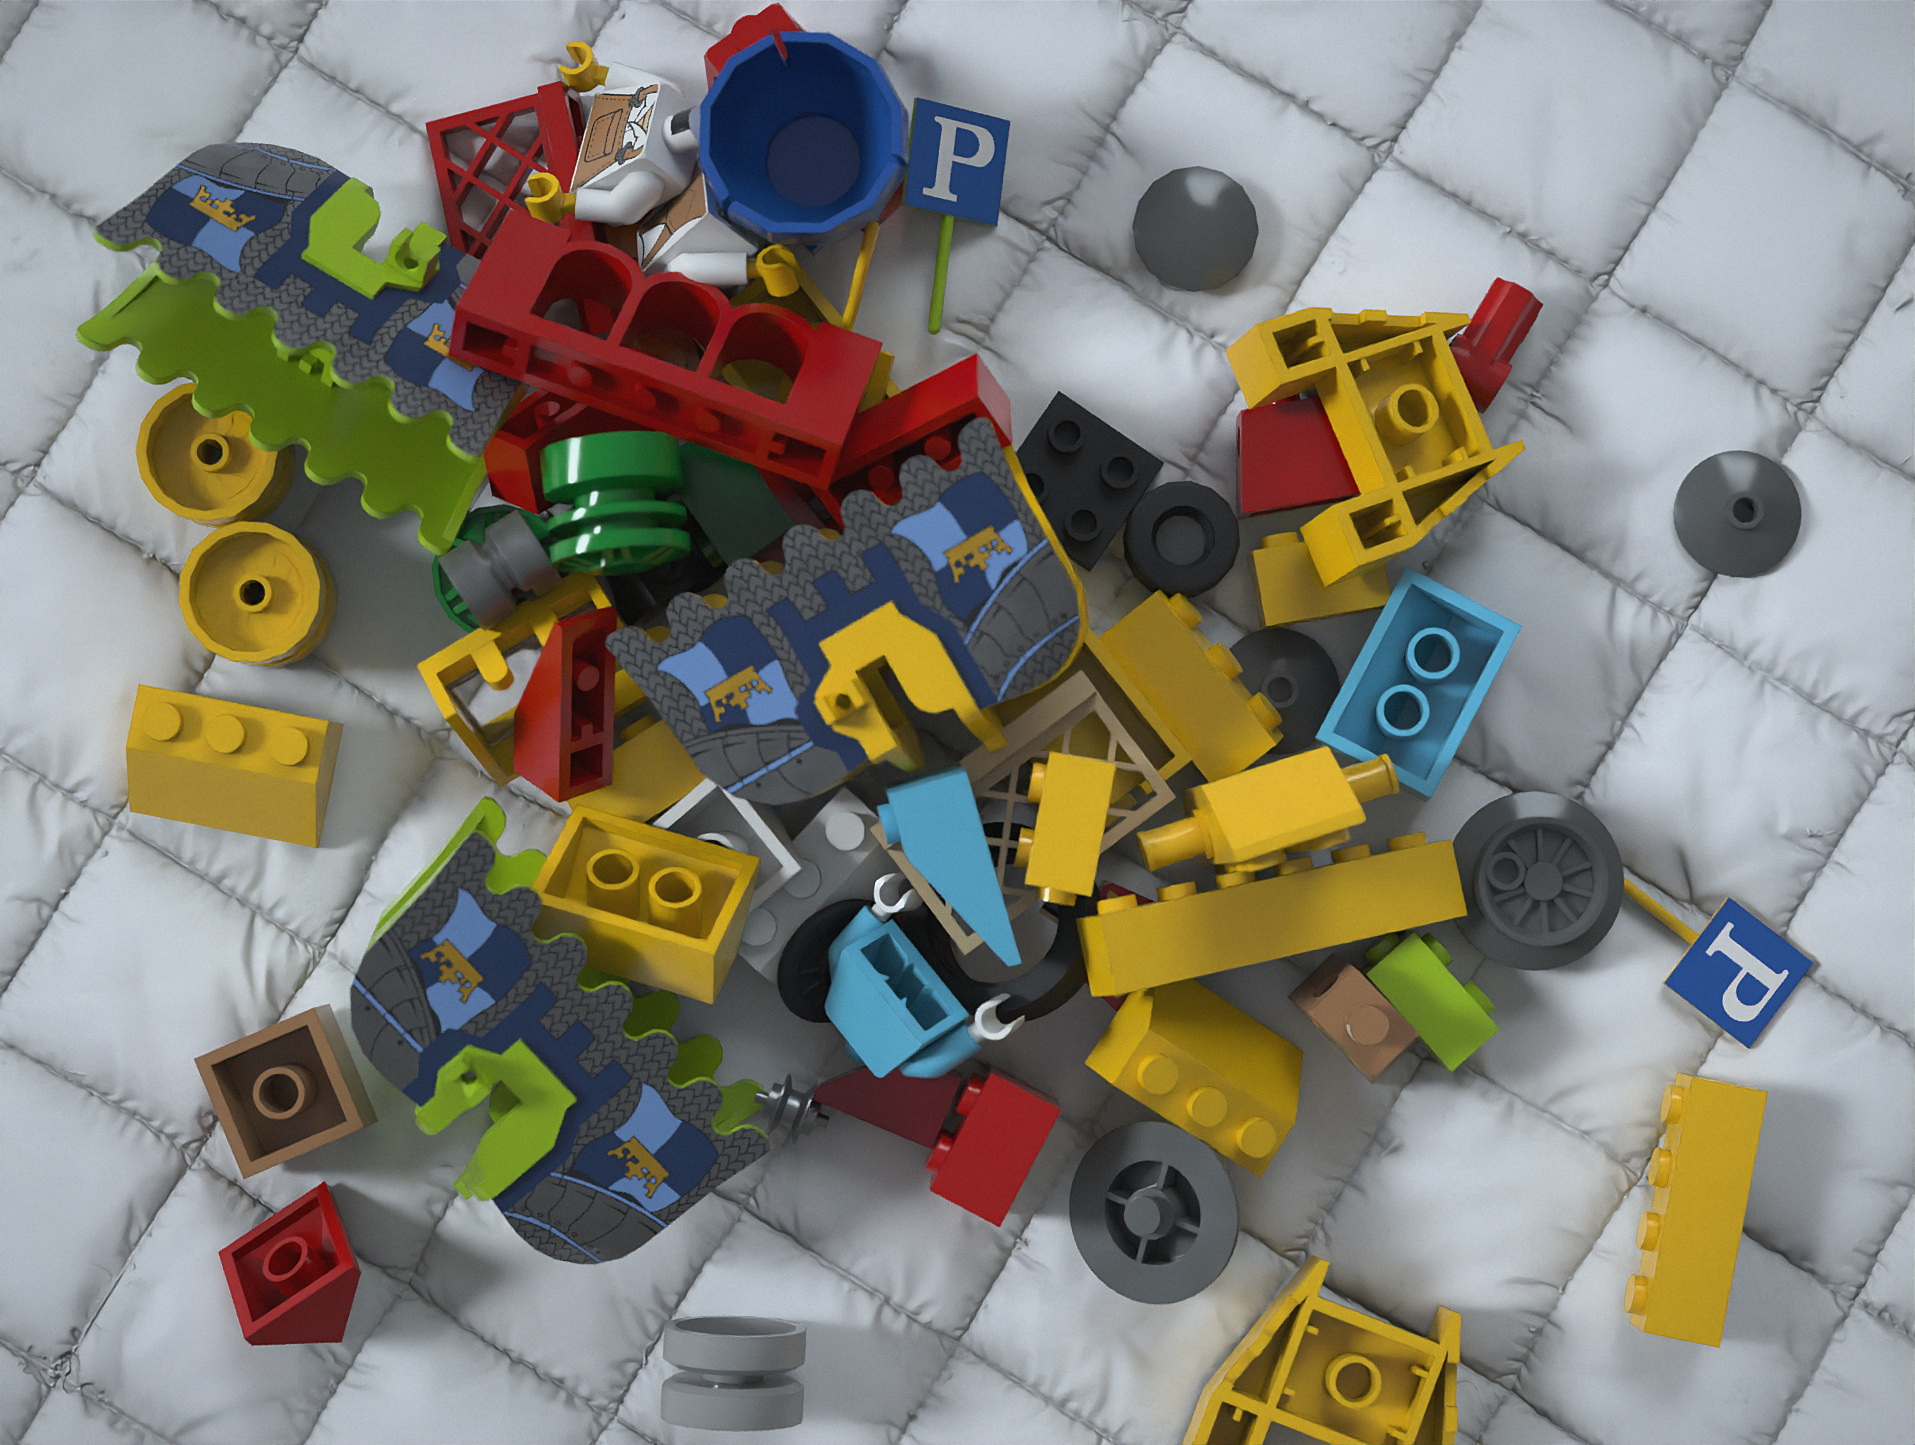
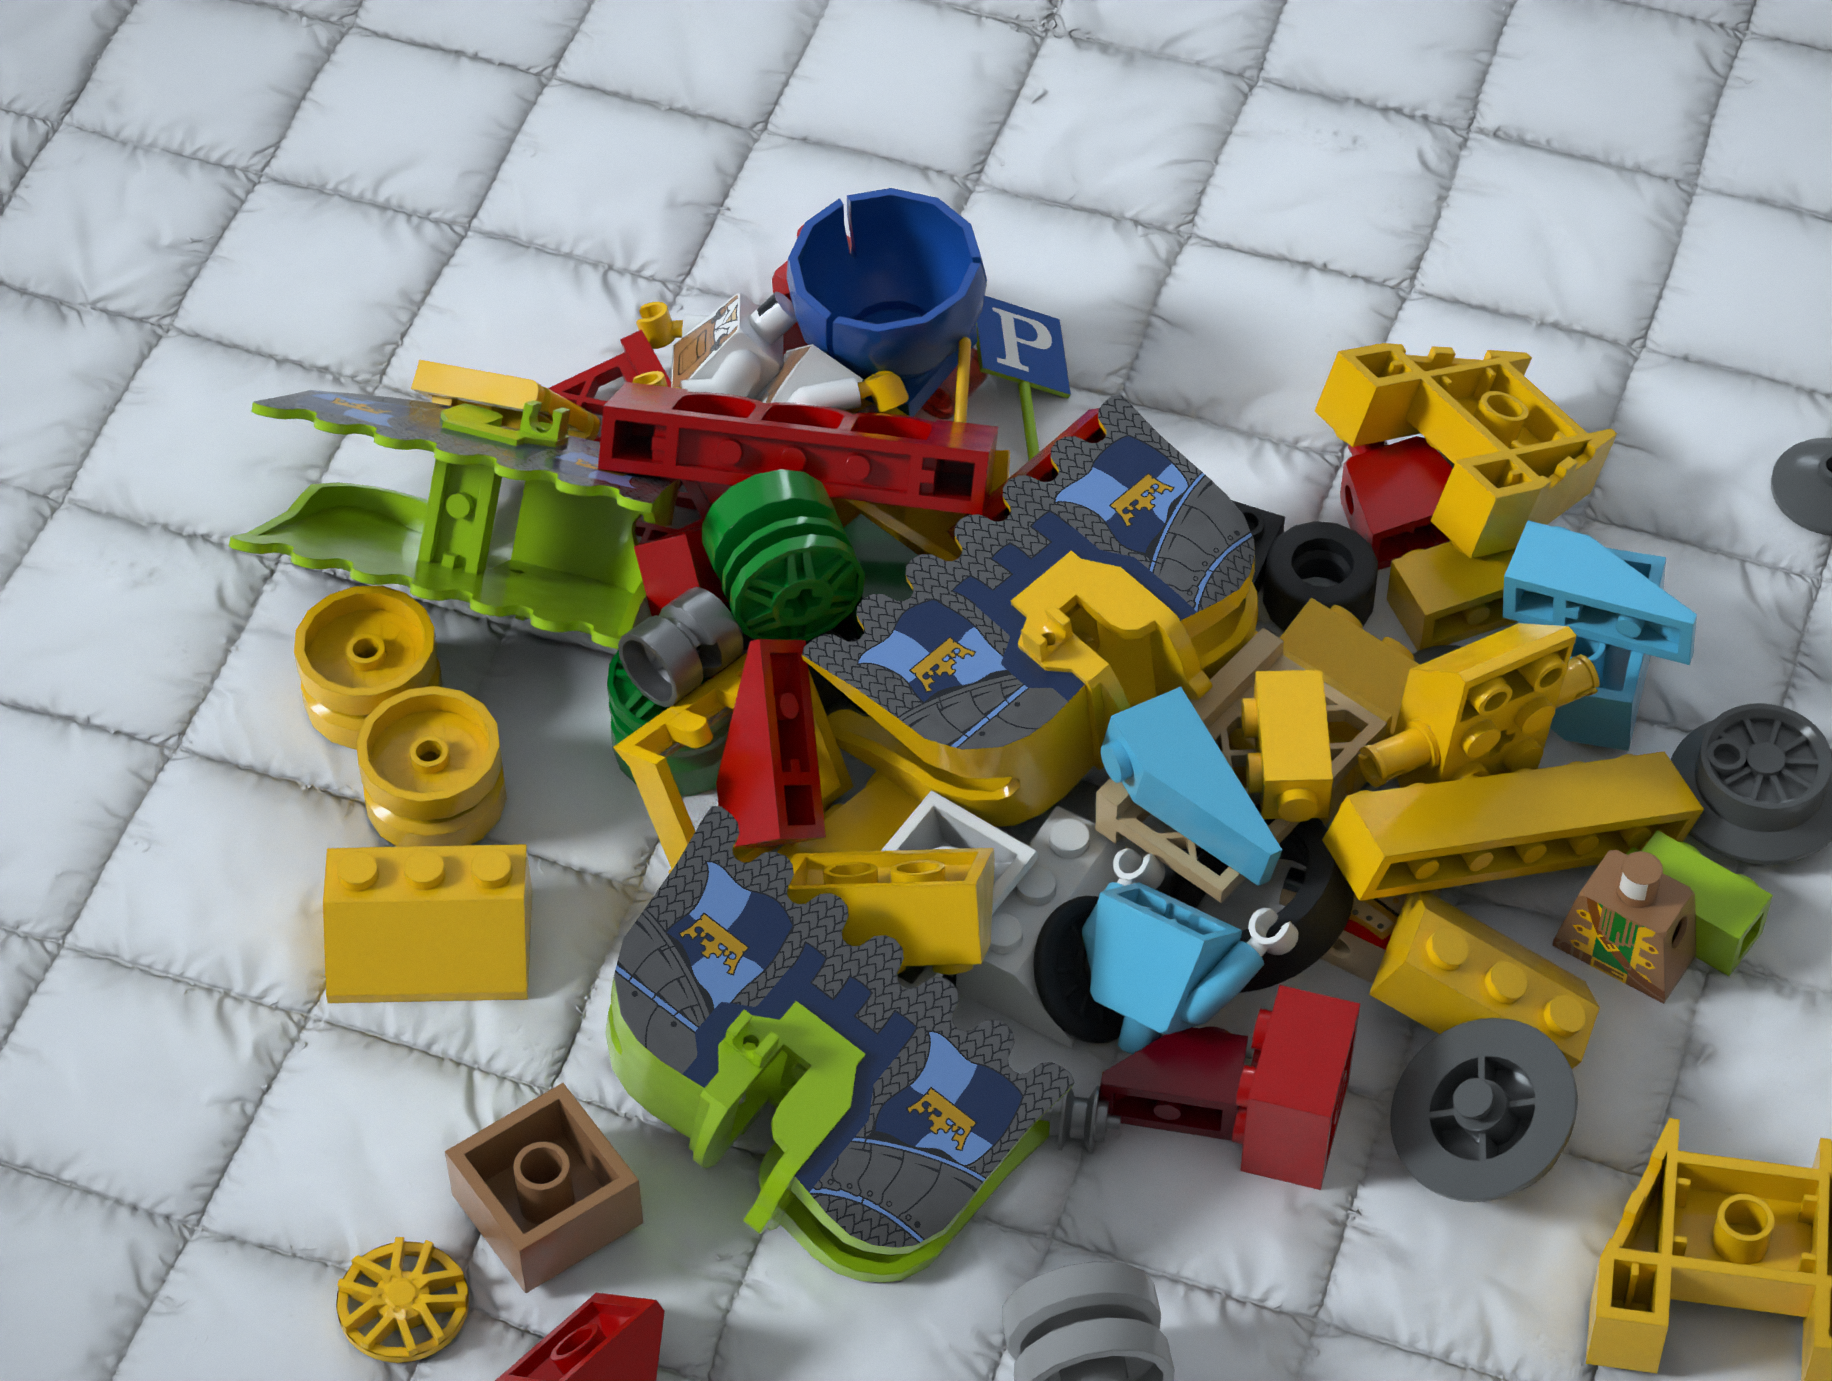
camera: 15 degrees left, 35 degrees down
(150, 1153) = (402, 1300): none -> yellow wheel
(399, 158) = (499, 393): none -> yellow container
(1195, 229) = (1254, 362): dark grey dish -> none
(1418, 663) = (1583, 585): none -> medium azure slope
(1493, 338) = (1562, 371): red piece -> none

